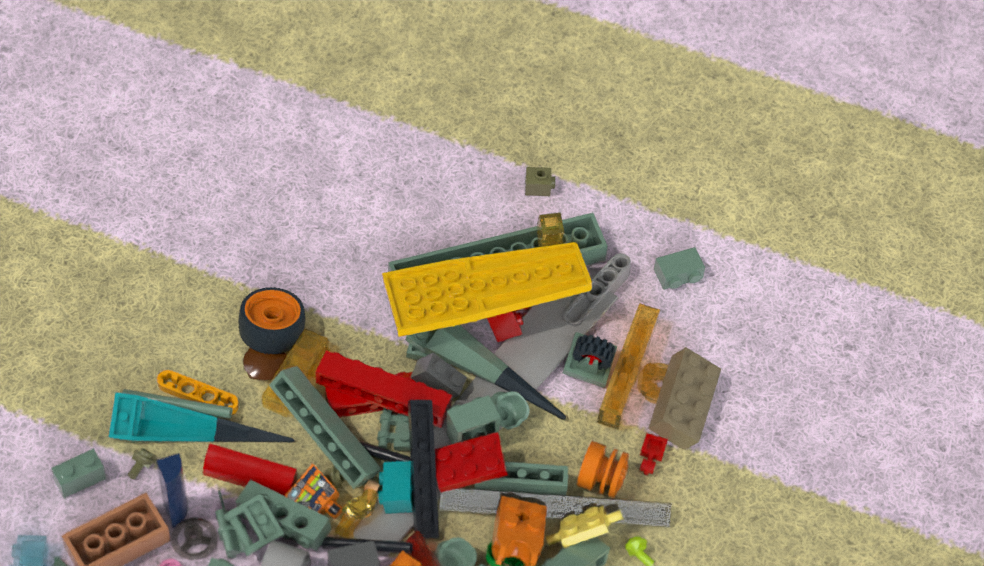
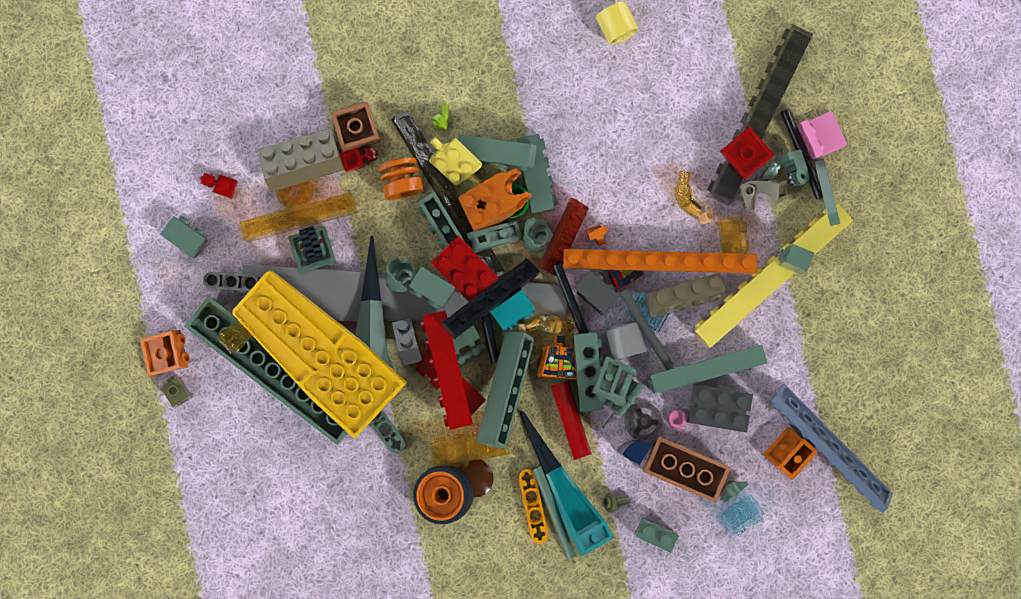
camera: 120 degrees left, 30 degrees up
(381, 313) = (376, 423): none -> sand green beam
(482, 517) = (495, 236): none -> sand green plate
(580, 193) = (165, 352): none -> orange plate
(684, 465) = (355, 127): none -> nougat brick
(707, 330) = (223, 186): none -> red plate

